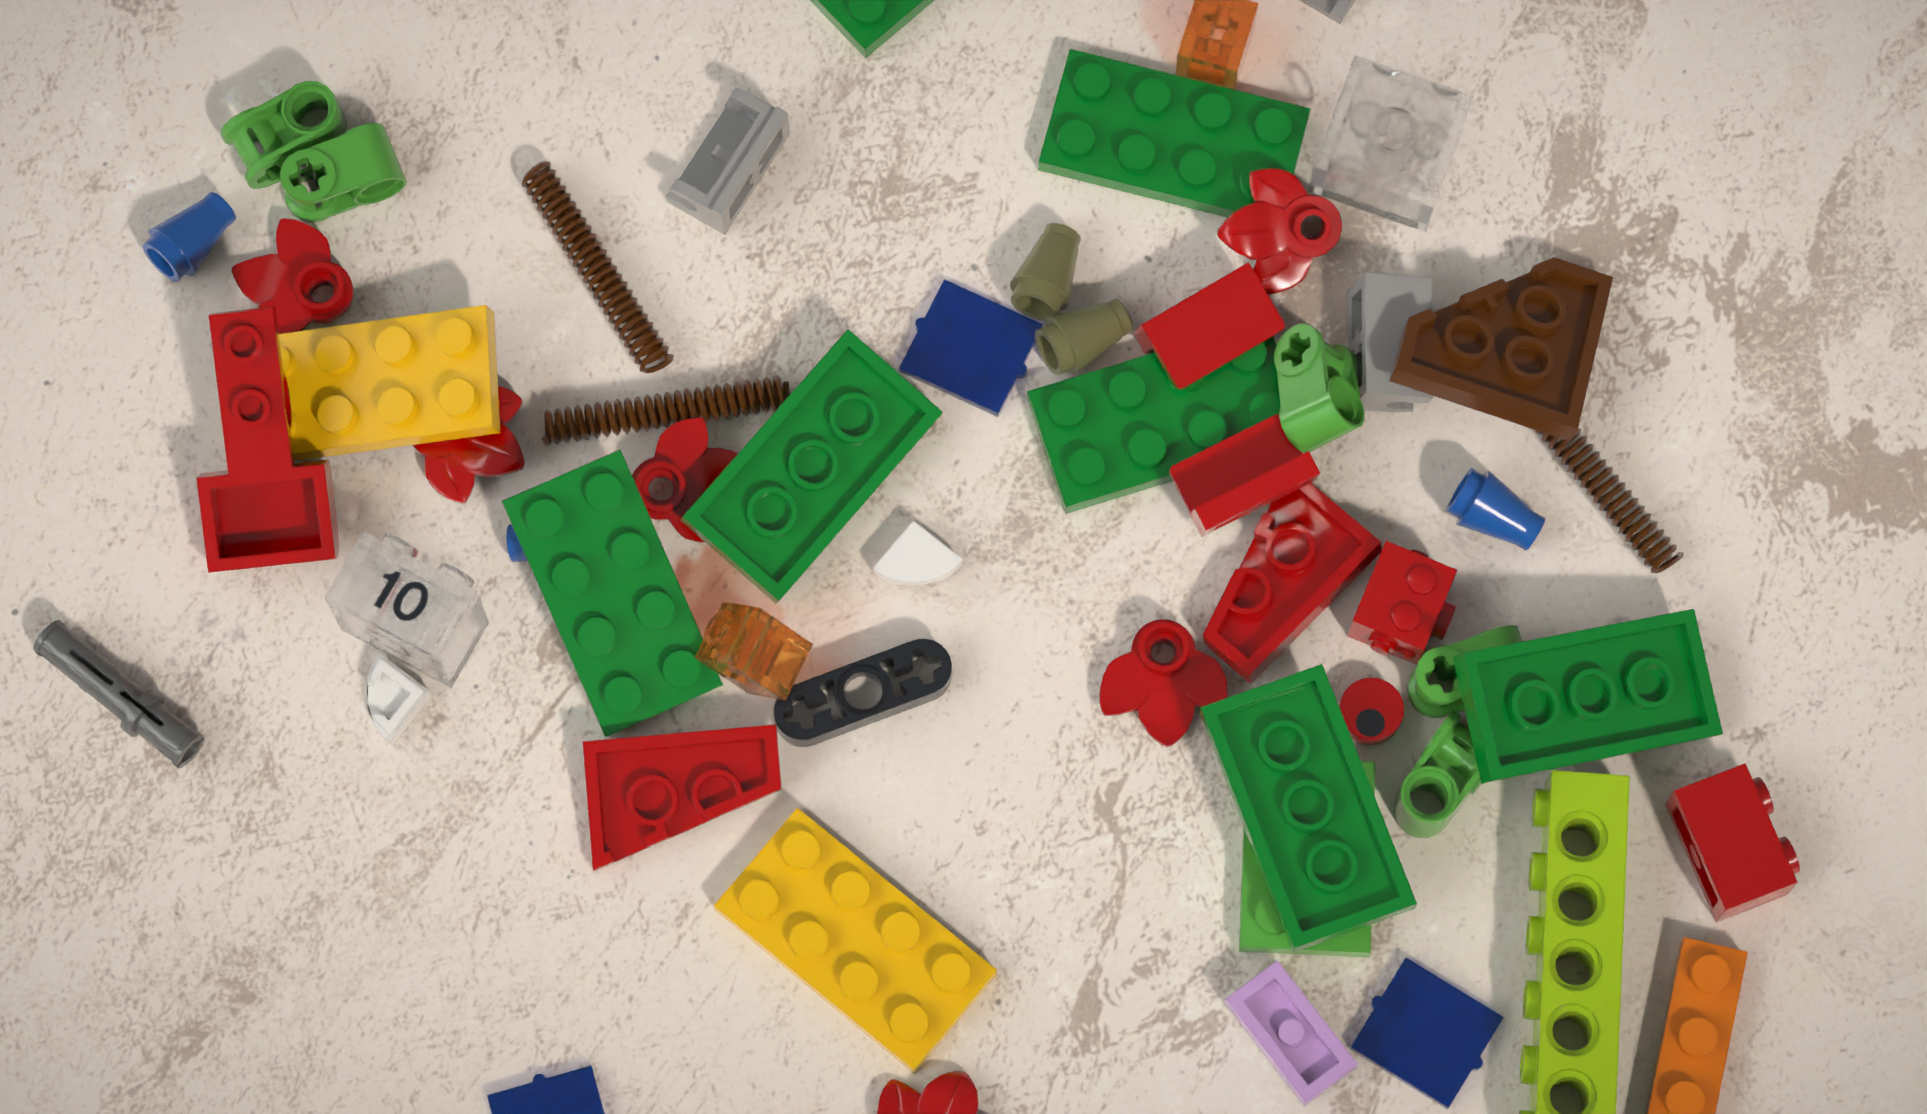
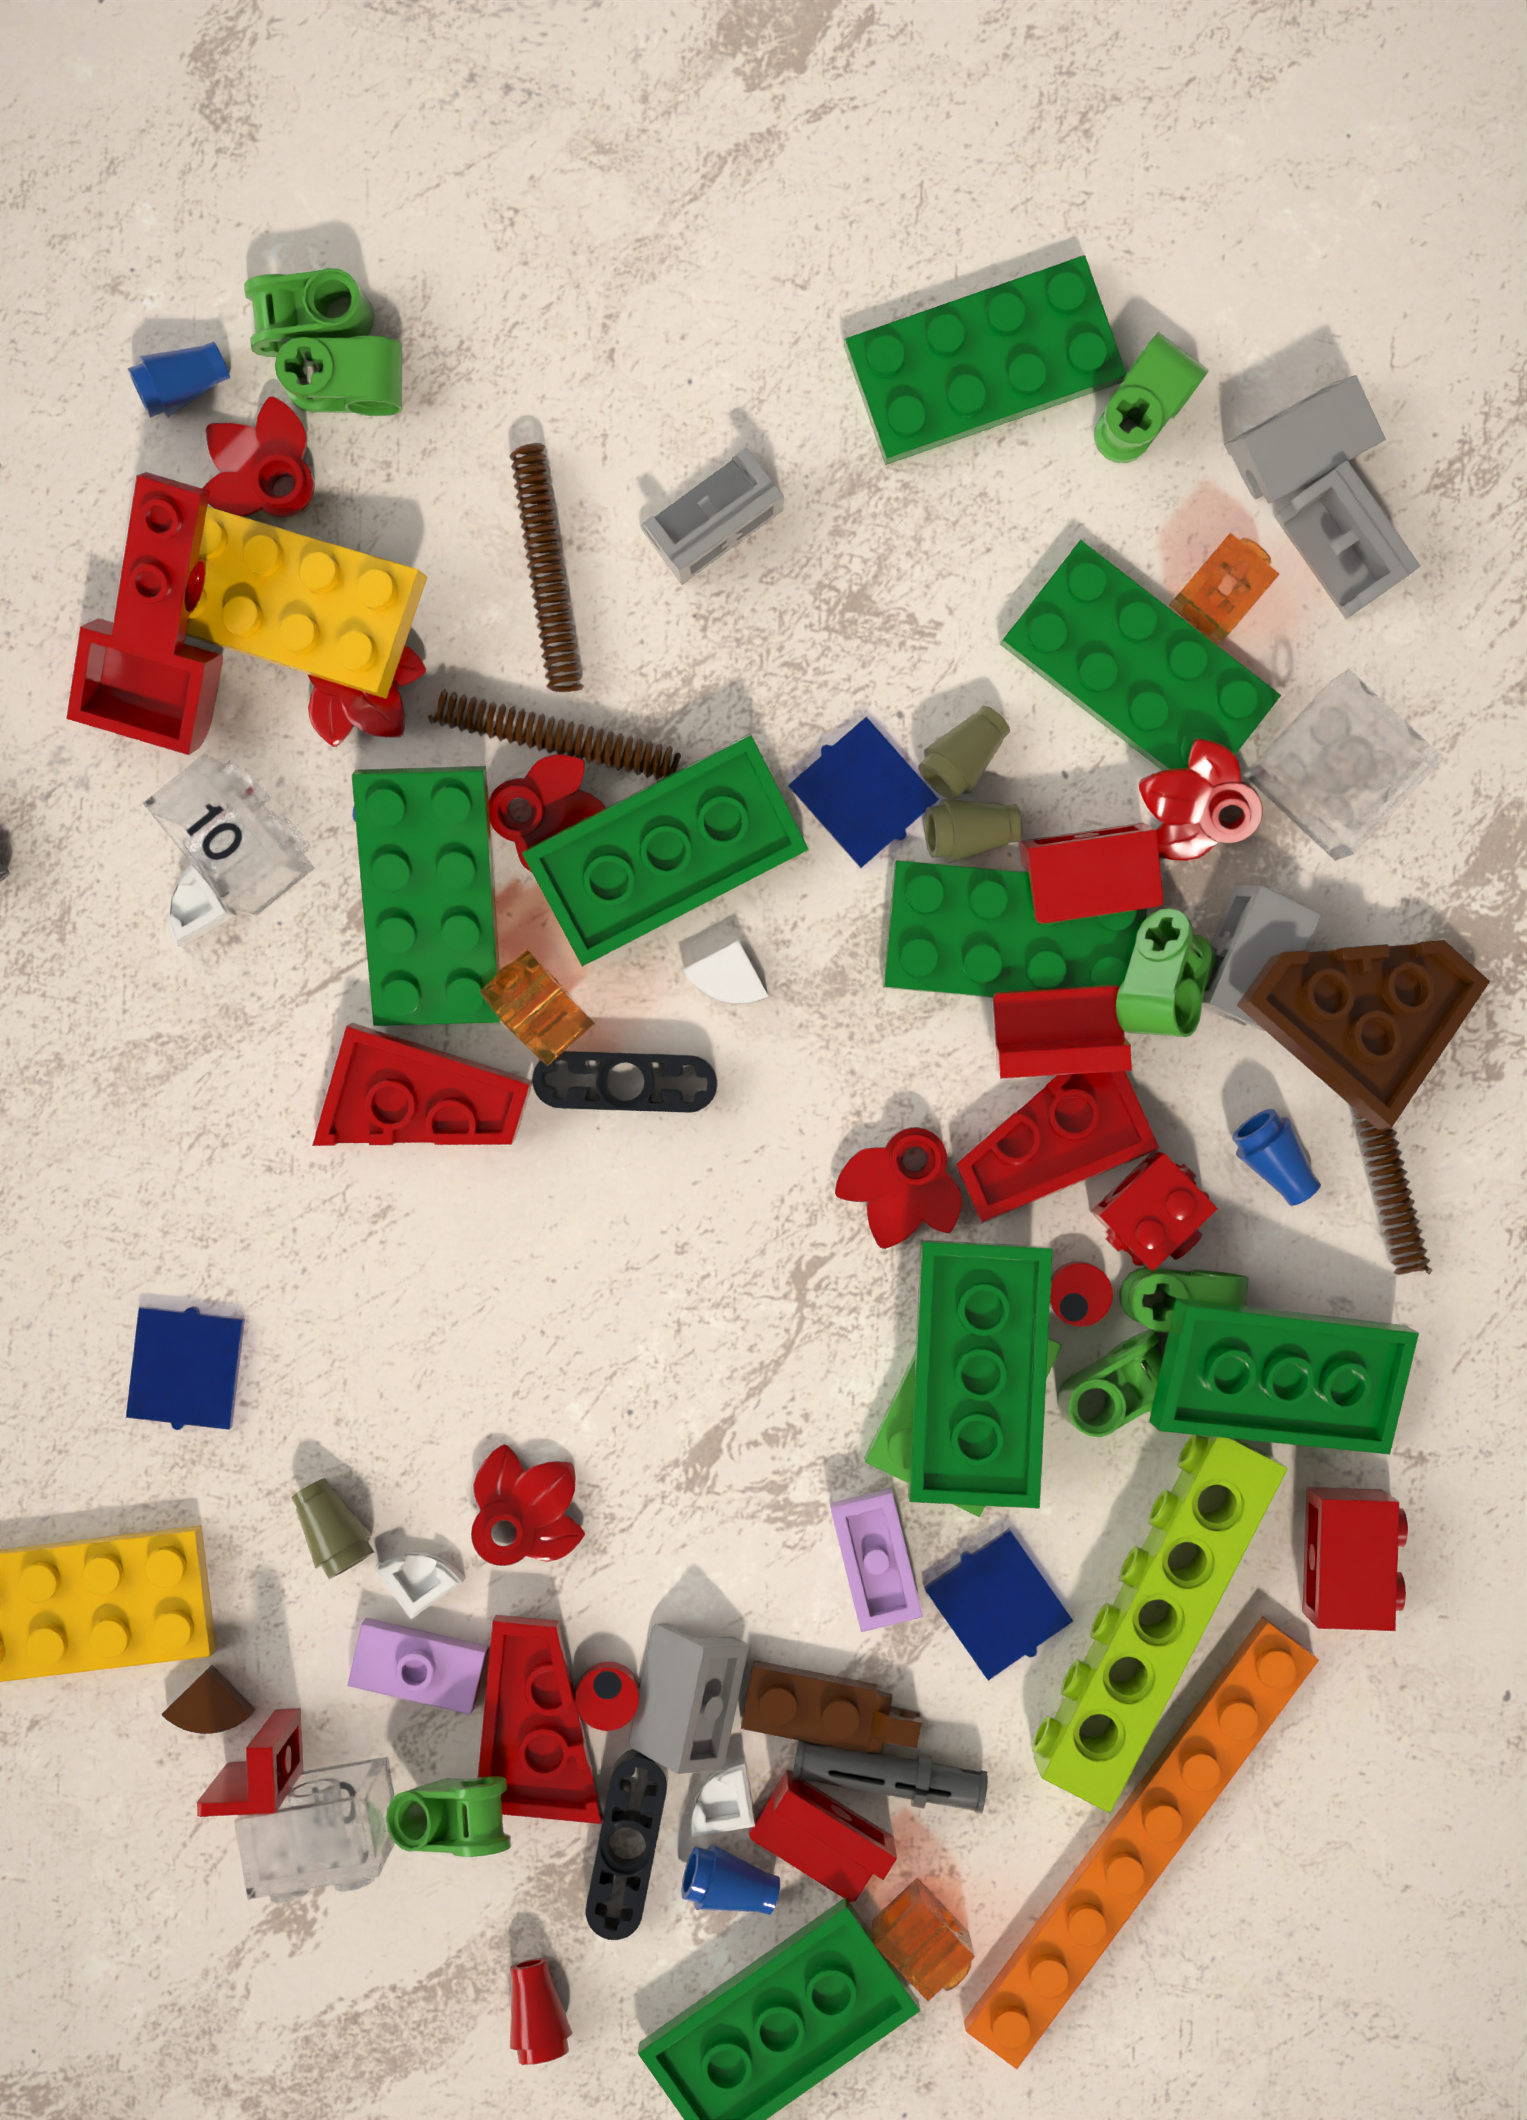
camera: 20 degrees right, 15 degrees up
(855, 940) = (524, 1306): yellow plate -> none

